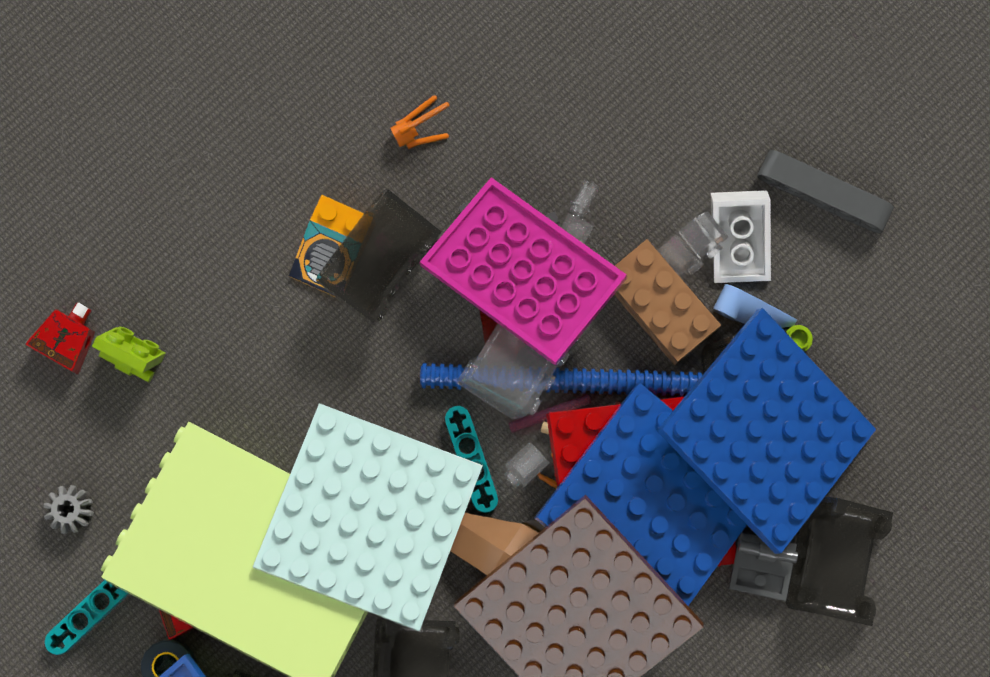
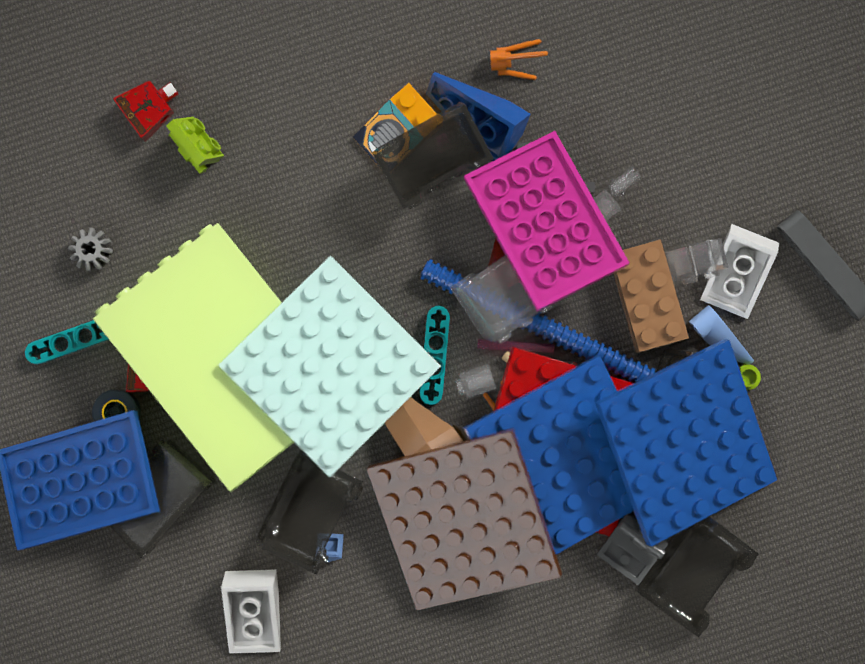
camera: 25 degrees right, 5 degrees up
(427, 191) = (496, 118): none -> blue wedge

